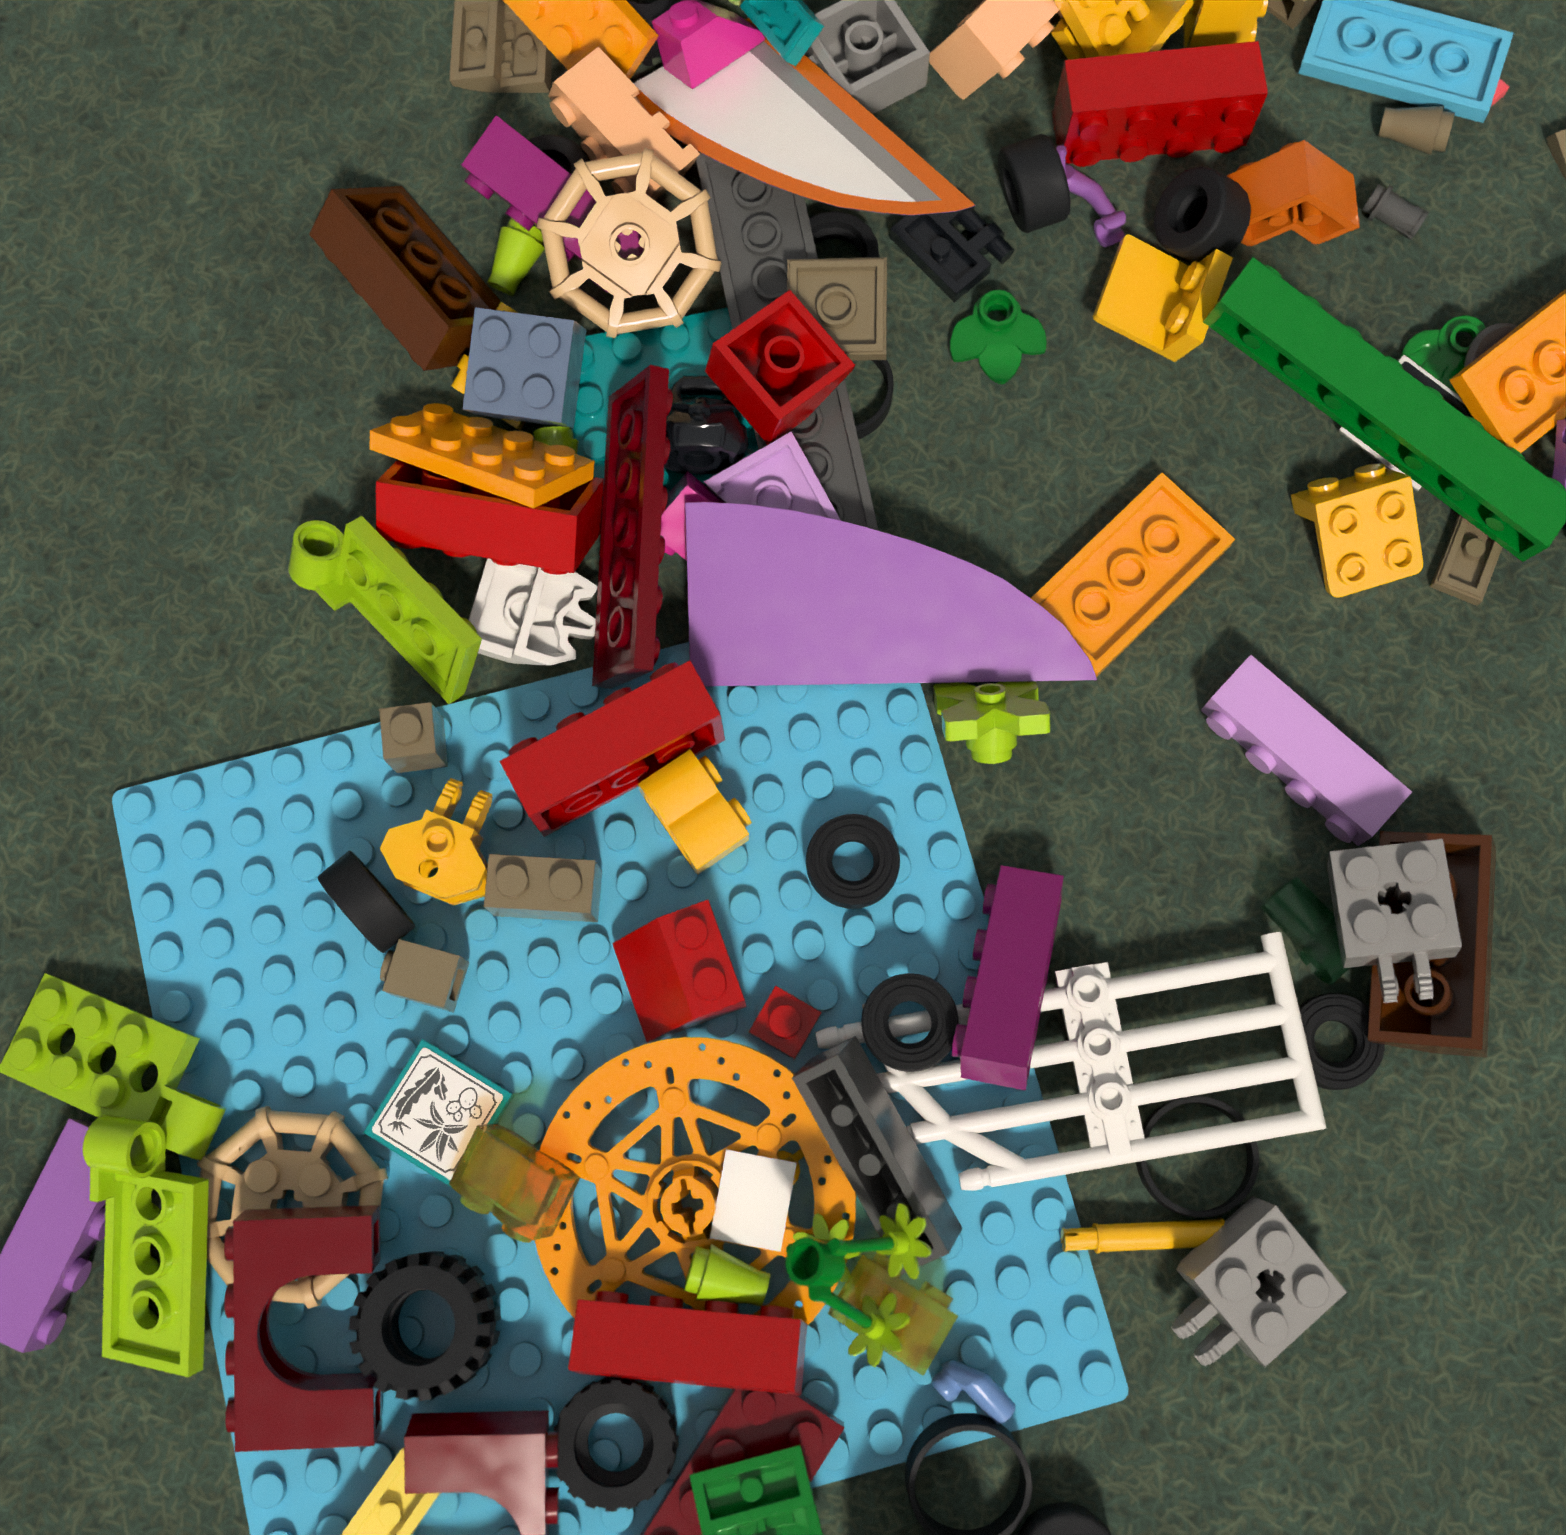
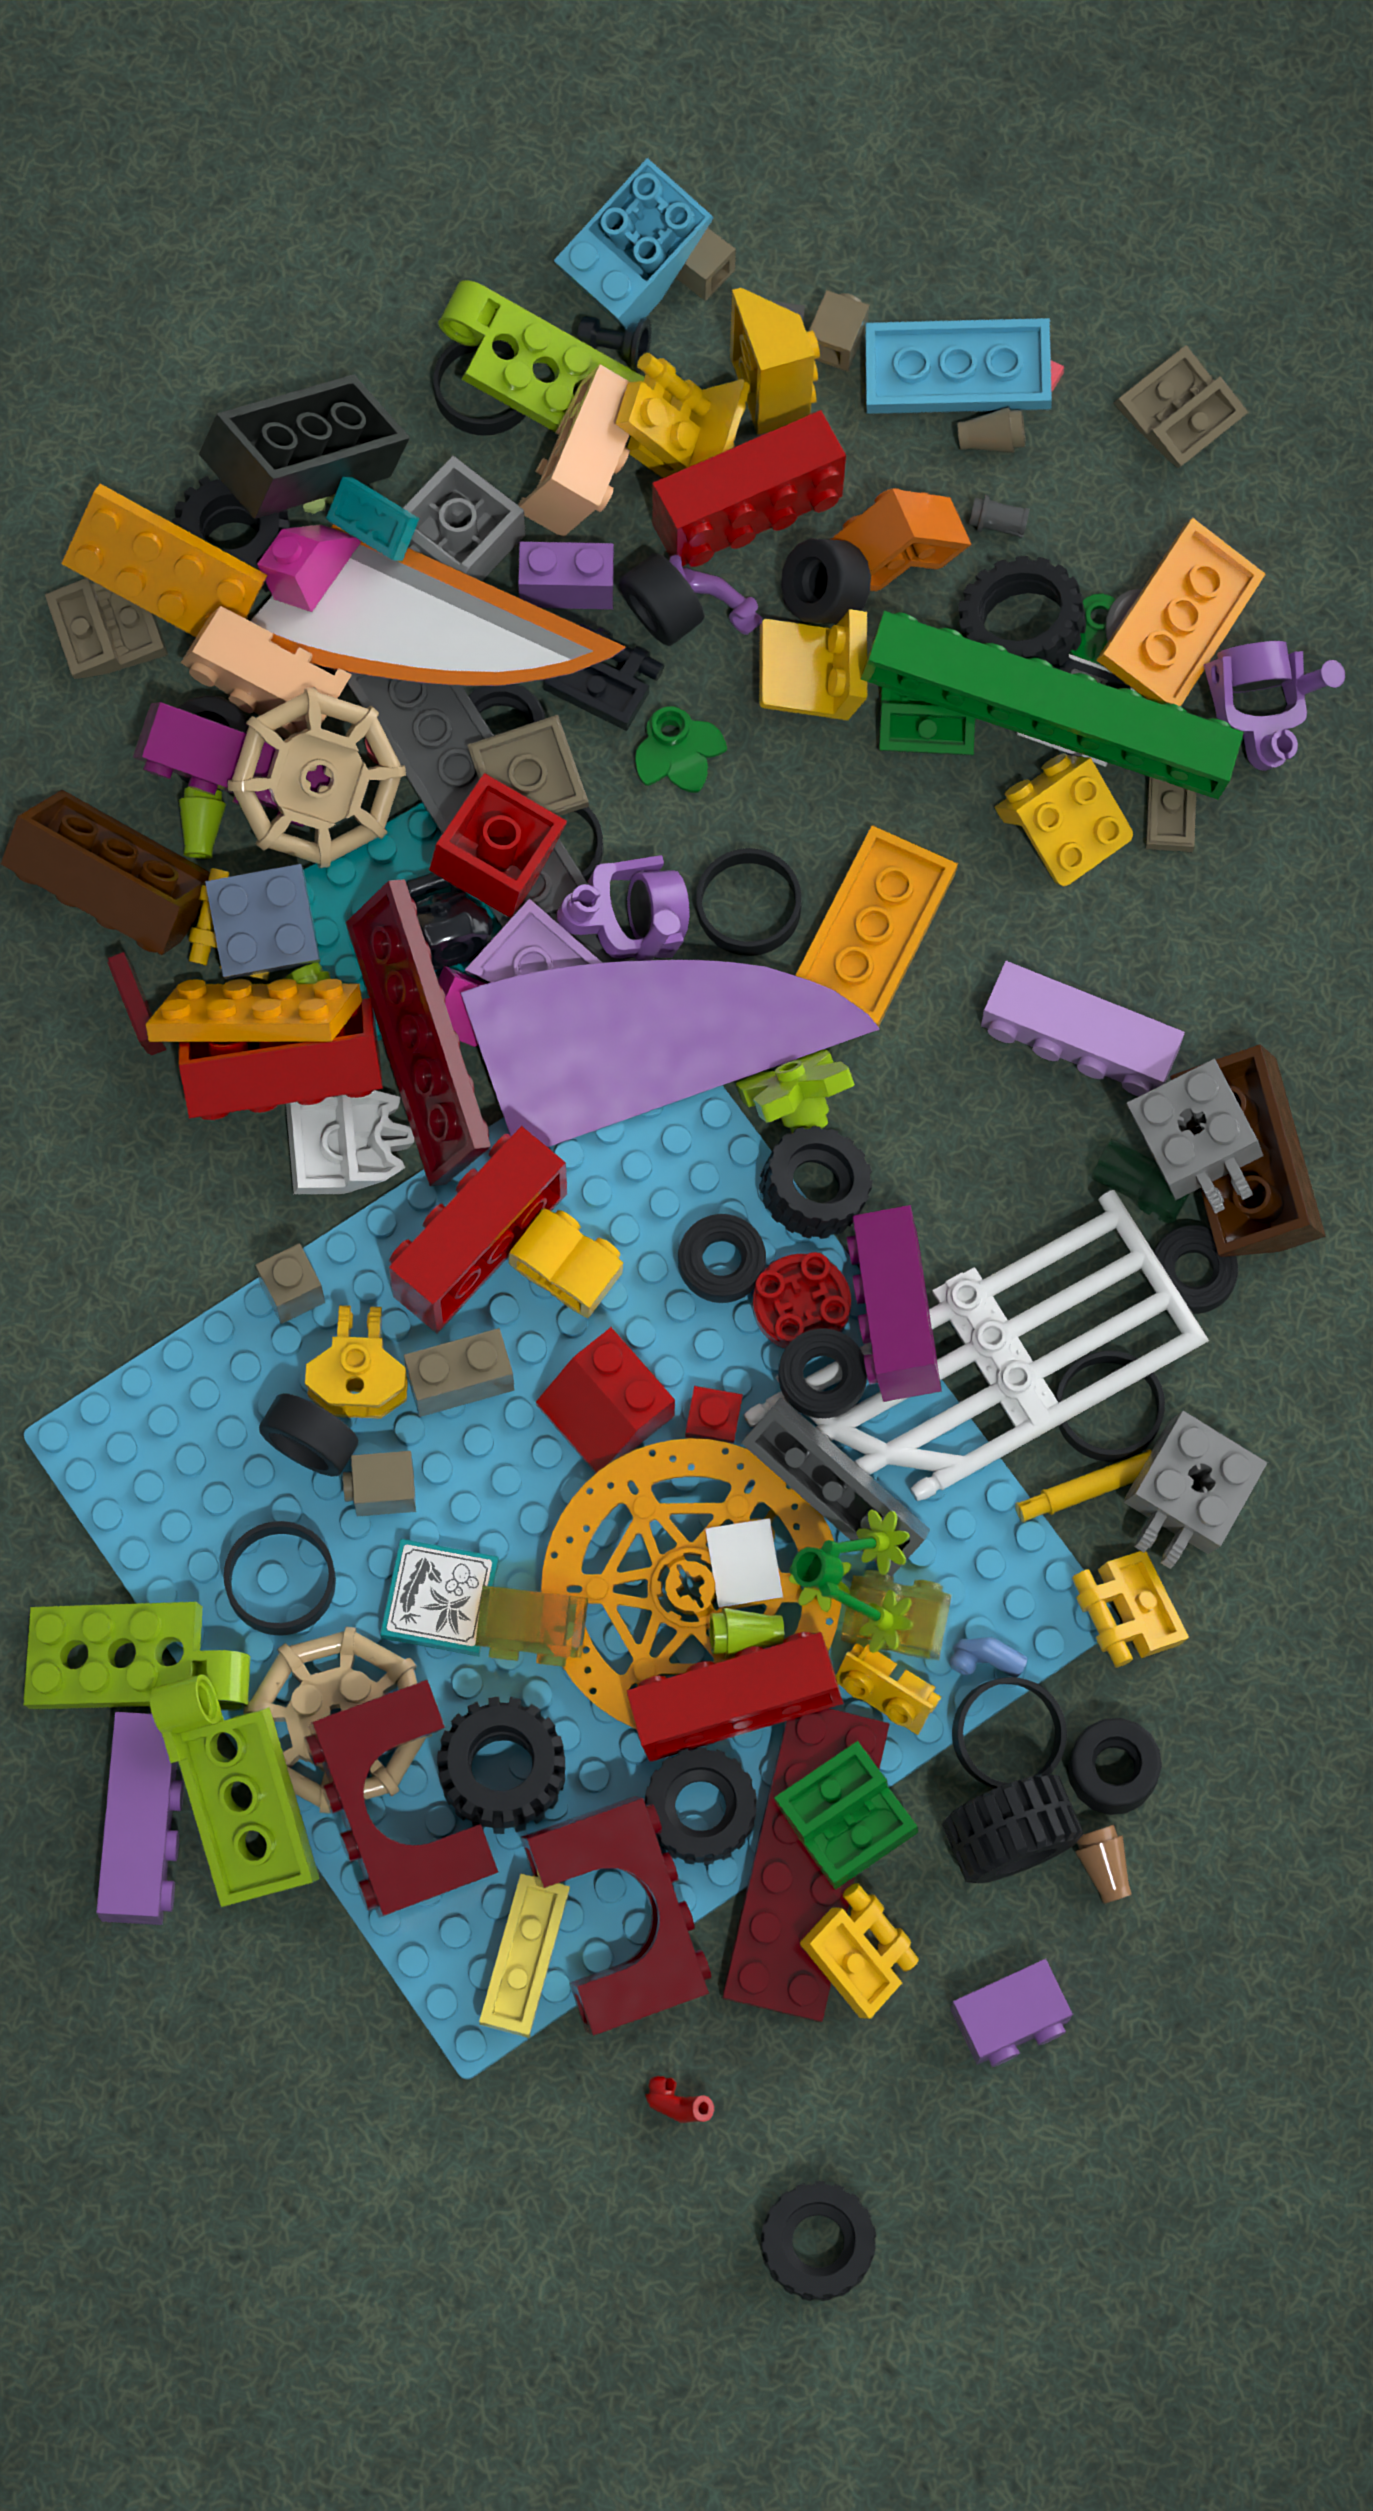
camera: 25 degrees left, 5 degrees down
(238, 1019) = (265, 1530): none -> black tyre
(382, 398) = (134, 1000): none -> dark red tile
(391, 596) = (153, 1164): lime hinge -> none
(871, 1406) = (868, 1678): none -> yellow hinge
(916, 484) = (655, 909): none -> medium lavender piece
(918, 932) = (800, 1296): none -> red tile
(951, 131) = (567, 574): none -> medium lavender brick
(1003, 788) = (834, 1153): none -> black tyre
(1021, 461) = (749, 856): none -> black tyre
(1157, 1390) = (1141, 1602): none -> yellow plate
(1248, 391) = (923, 727): none -> green slope
(1403, 278) = (1021, 578): none -> black tyre

